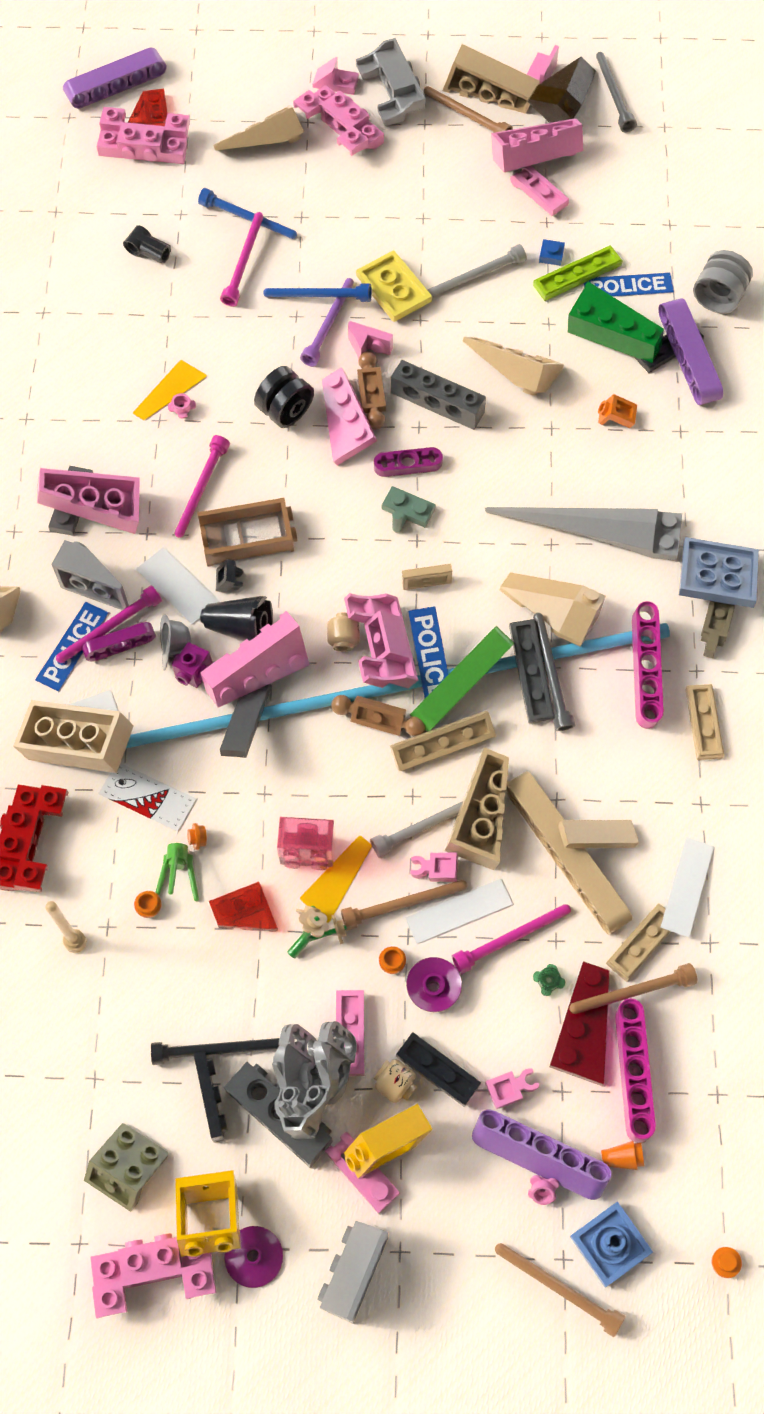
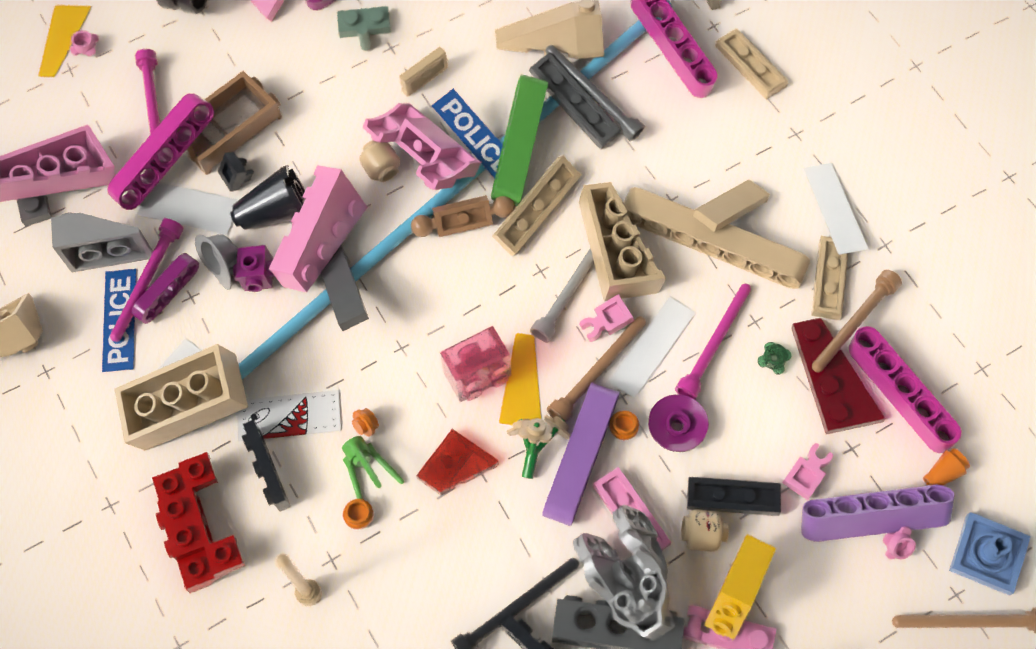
camera: 30 degrees left, 0 degrees up
(103, 825) = (265, 466): none -> black plate
(144, 542) = (173, 147): none -> dark pink beam
(342, 962) = (580, 454): none -> medium lavender beam

